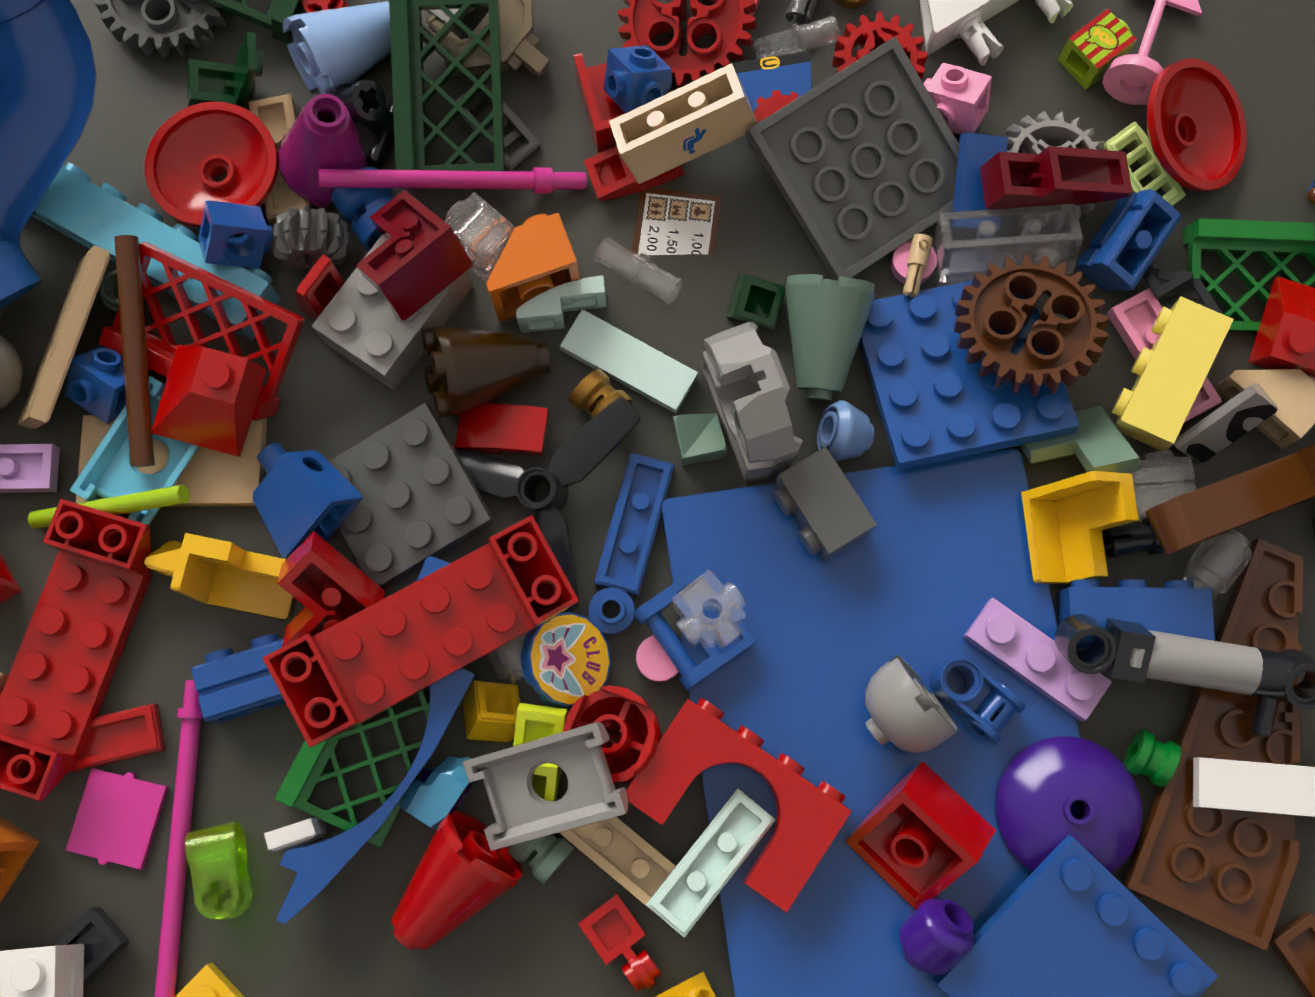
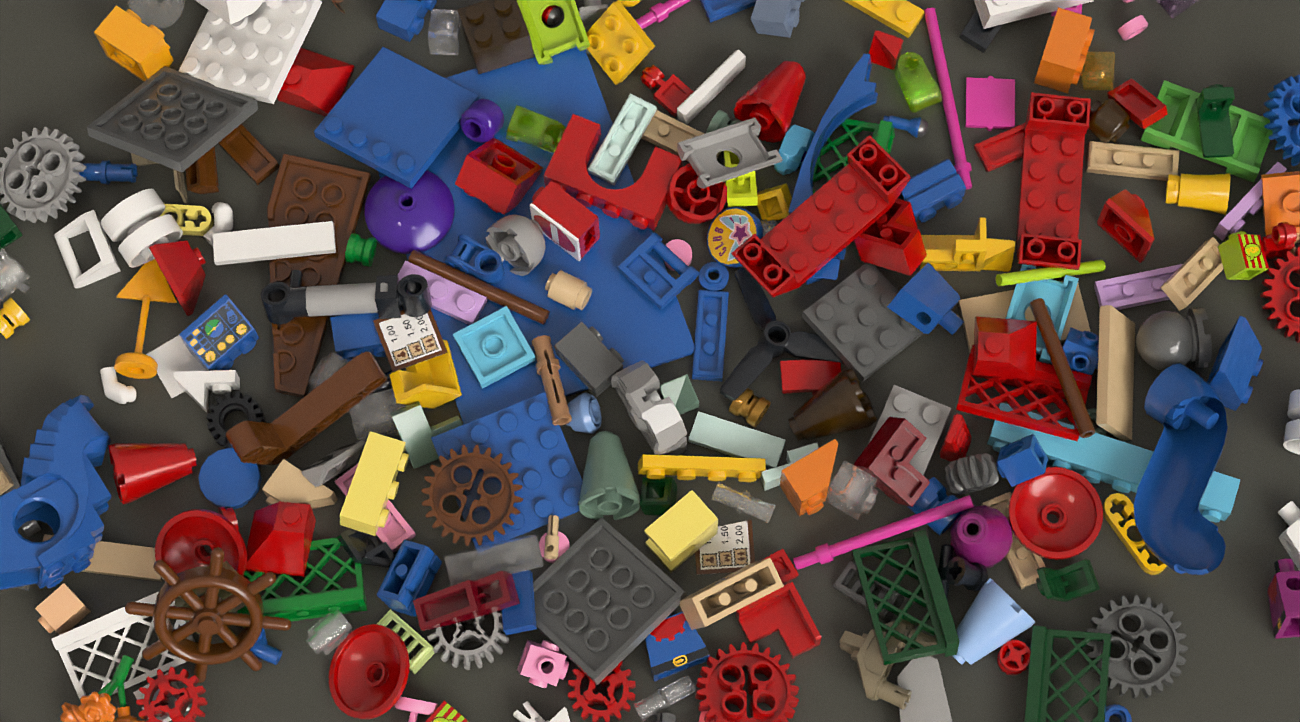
camera: 170 degrees right, 5 degrees down
(131, 148) = (1114, 521): none -> yellow beam
(242, 797) = (916, 127): none -> blue piece
(252, 940) = (885, 49): none -> red slope
(295, 834) = (877, 109): white tile -> none
(548, 930) = (711, 87): none -> white tile
(636, 76) = (771, 627): blue brick -> none
(674, 316) = (691, 466): none -> yellow plate
(704, 594) = (650, 268): clear brick -> none
(735, 228) = (681, 531): none -> light yellow piece
(832, 726) = (565, 220): none -> red piece
(839, 619) = (568, 290): none -> tan brick
(849, 903) = (535, 129): none -> clear neon green leg
(883, 427) = (548, 368): none -> medium nougat pin
(962, 647) = (481, 287): none -> reddish brown piece
(964, 553) = (494, 347): none -> medium azure plate
(1095, 582) = (410, 339): none -> sticker
(1245, 195) = (328, 632): none -> clear brick

